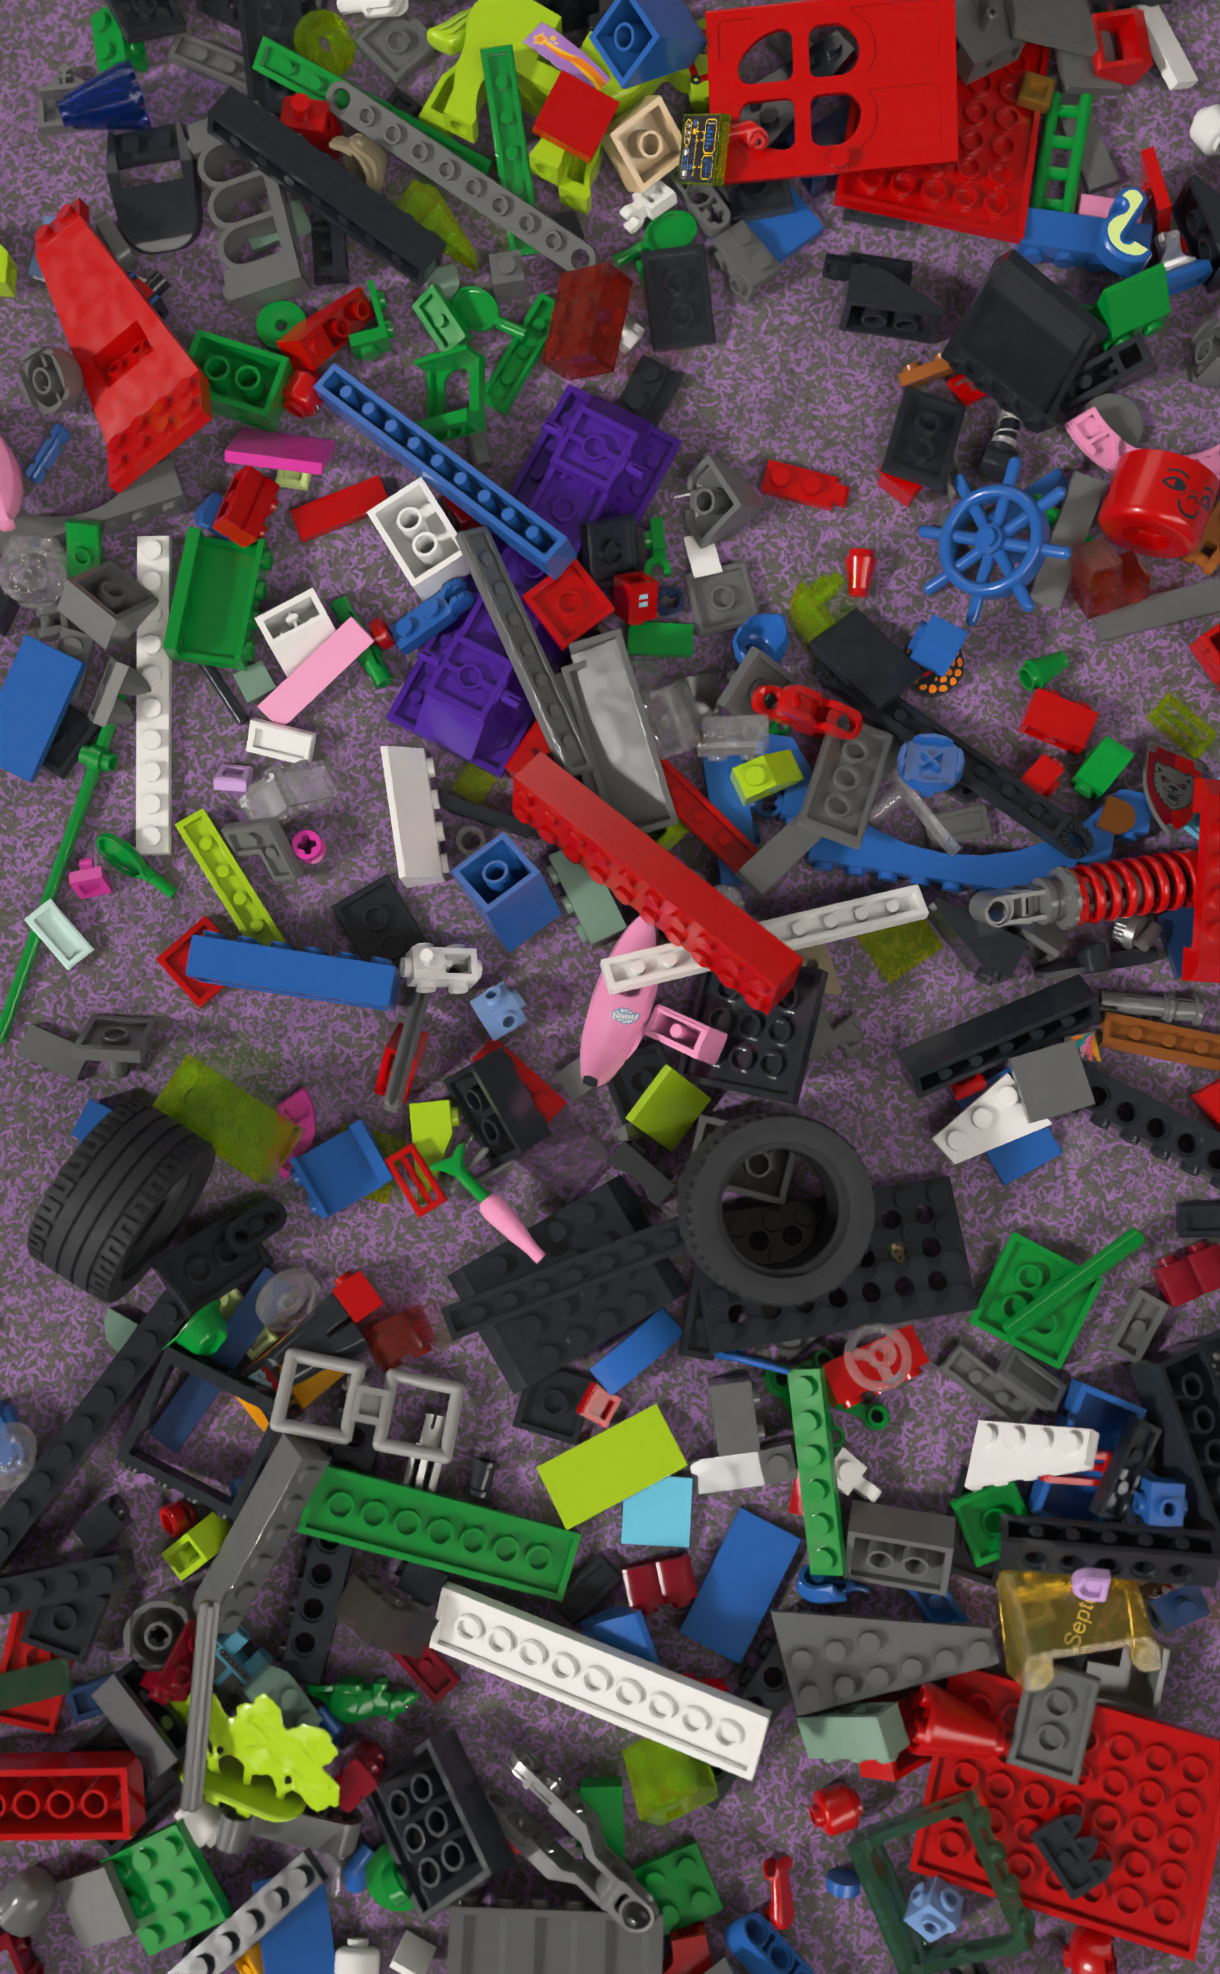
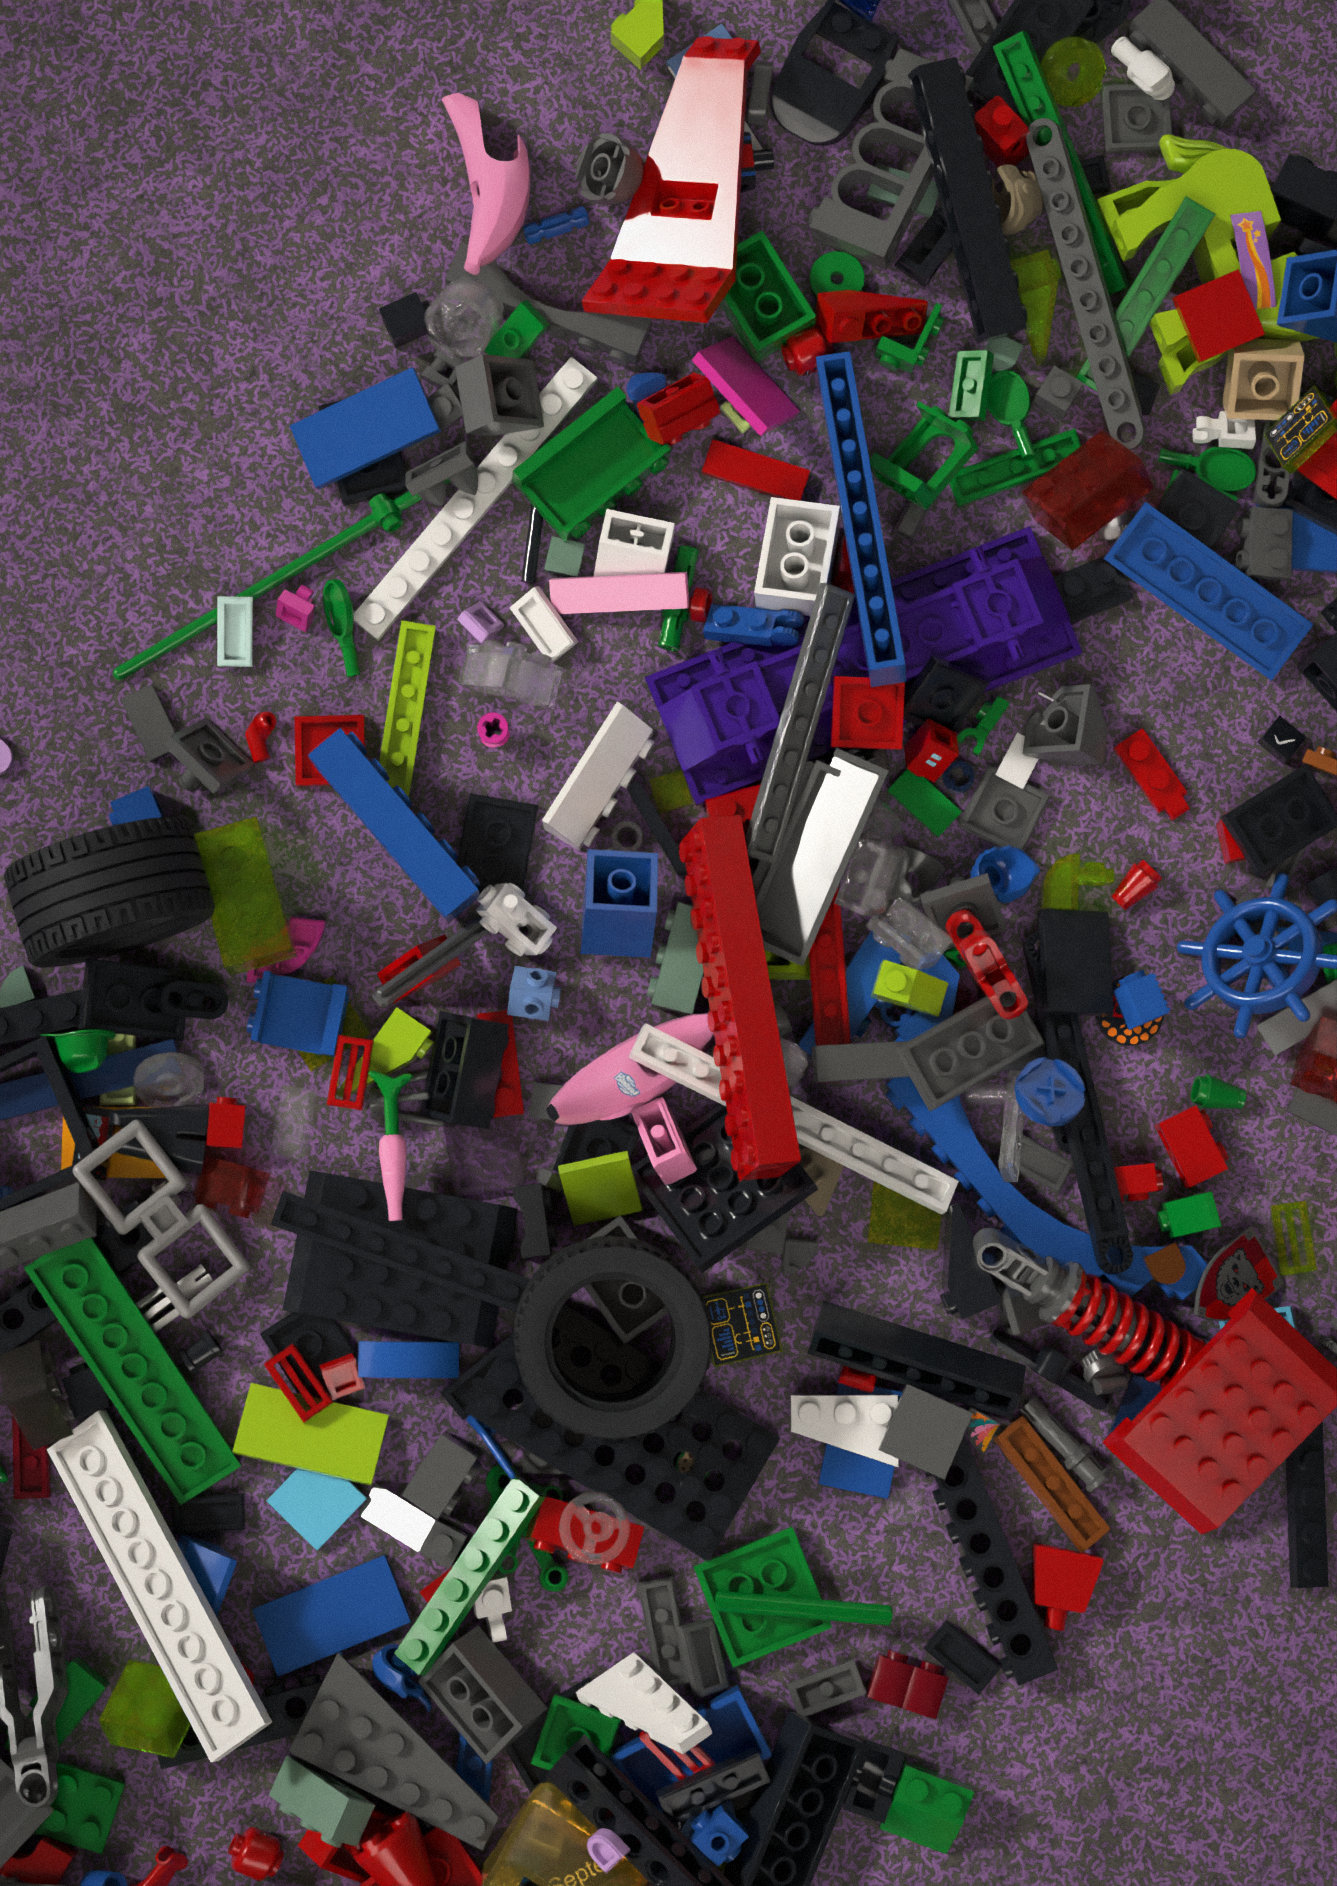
camera: 35 degrees right, 0 degrees up
(139, 994) = (258, 733): none -> red arm
(267, 839) = (464, 697): dark grey tile -> none
(405, 1251) = (293, 1122): none -> clear tile
(572, 1438) = (281, 1358): none -> red tile
(660, 1582) = (270, 1557): dark red brick -> none
(732, 323) = (1208, 591): none -> blue plate
(855, 1114) = (742, 1324): none -> black tile
(872, 388) = (1281, 740): none -> black slope

